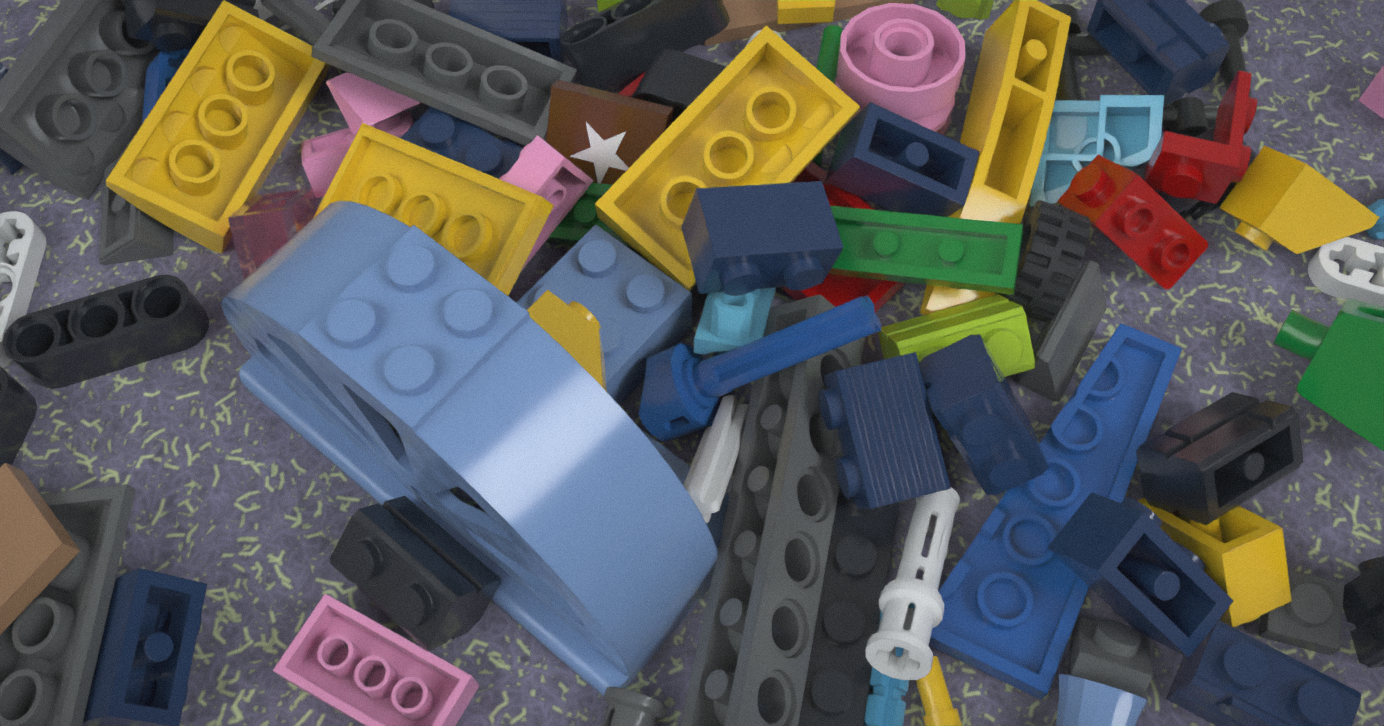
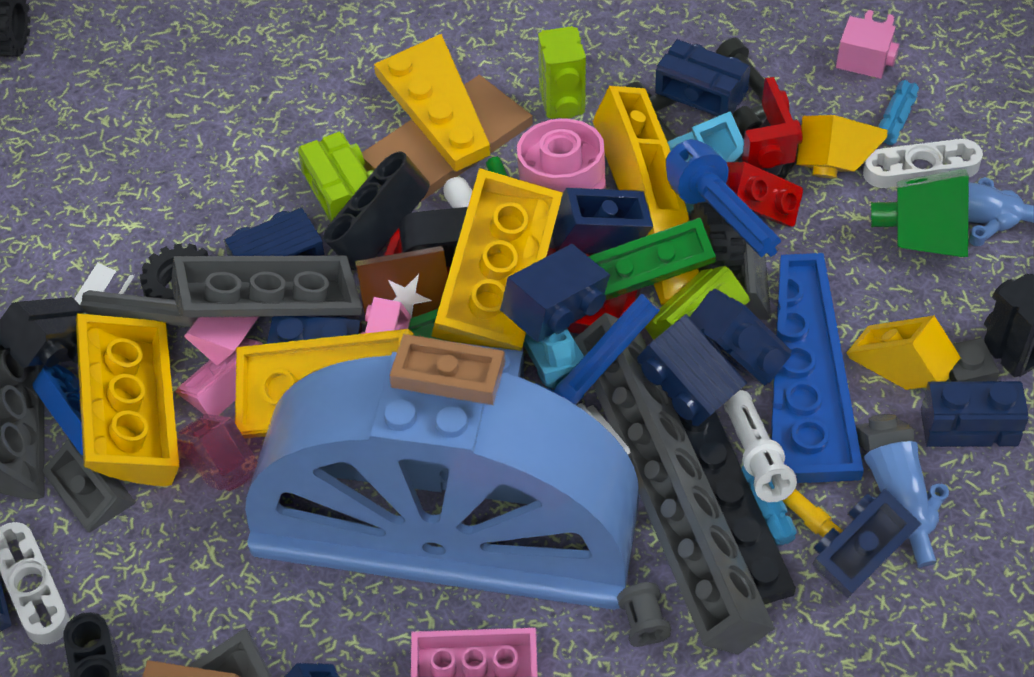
camera: 30 degrees left, 10 degrees down
(106, 331) = (145, 542): black beam -> none
(414, 571) = (458, 591): black brick -> none
(440, 292) = (447, 369): none -> medium nougat plate
(1064, 176) = (705, 180): none -> blue piece
(1141, 572) = (875, 376): dark blue brick -> none
(1220, 457) = (879, 300): black brick -> none

